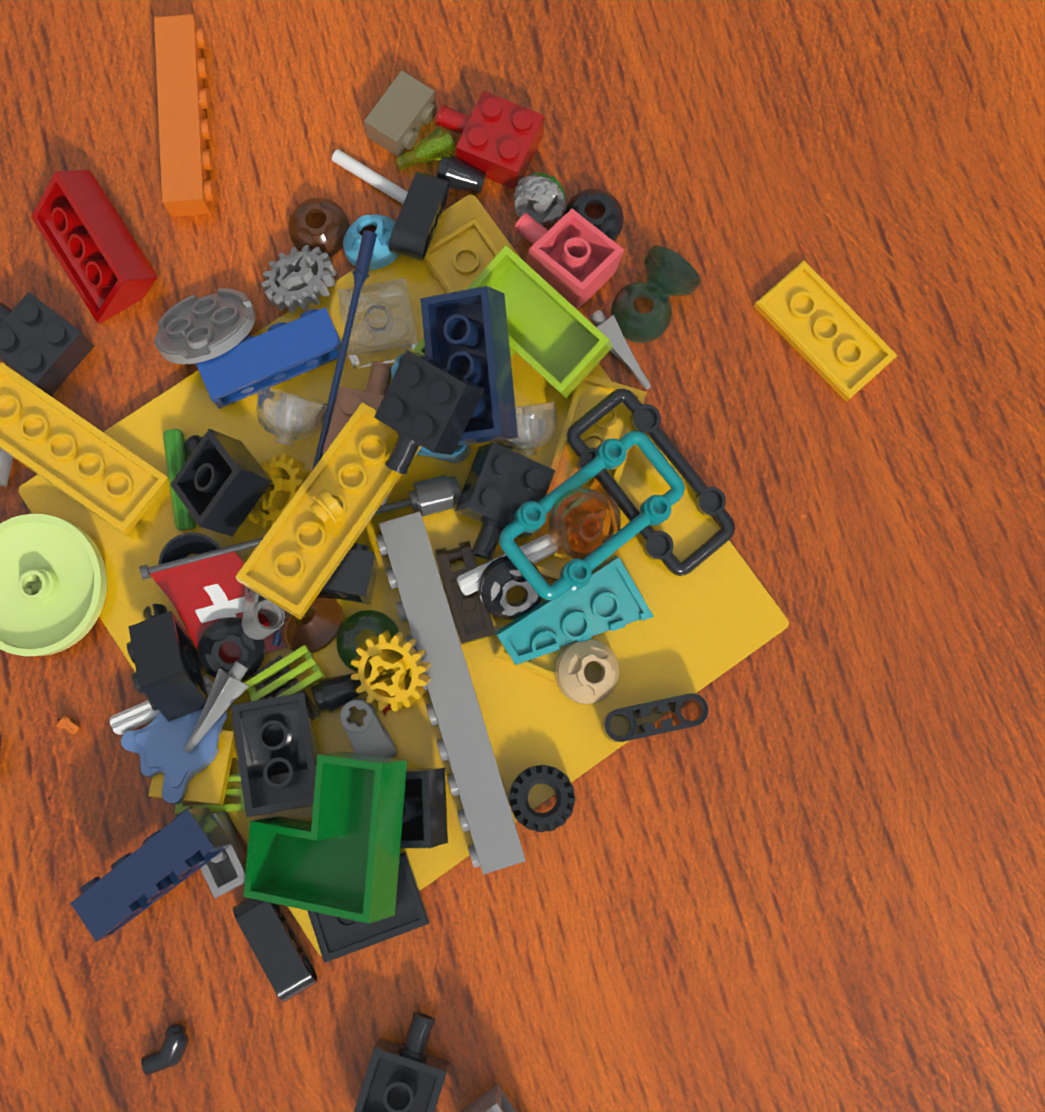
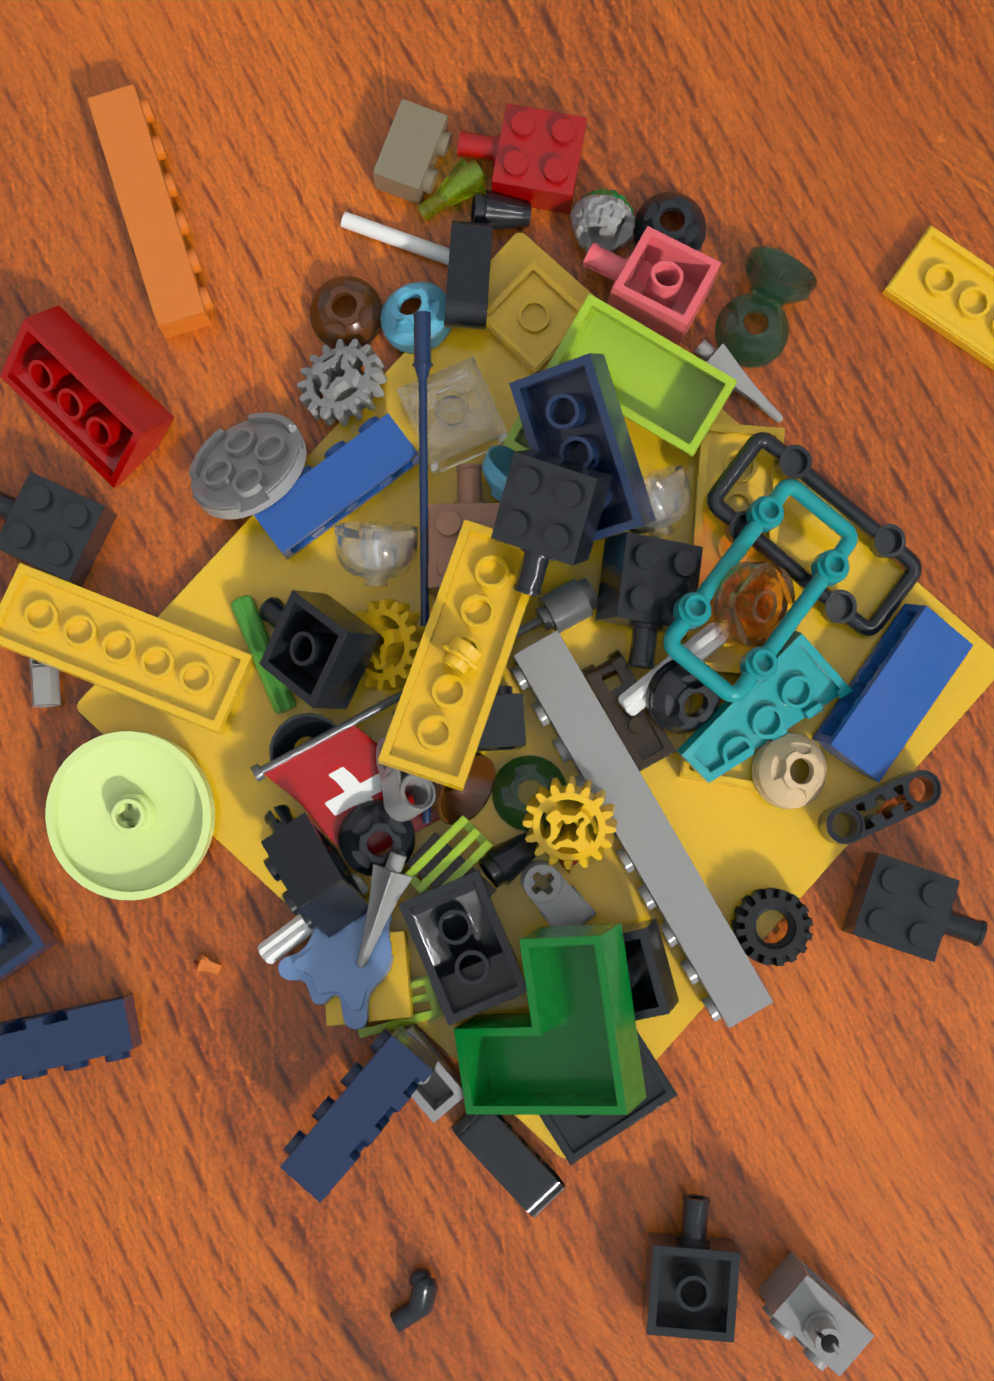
camera: 10 degrees left, 5 degrees up
(661, 810) = (908, 908): none -> black brick
(687, 625) = (893, 691): none -> blue brick

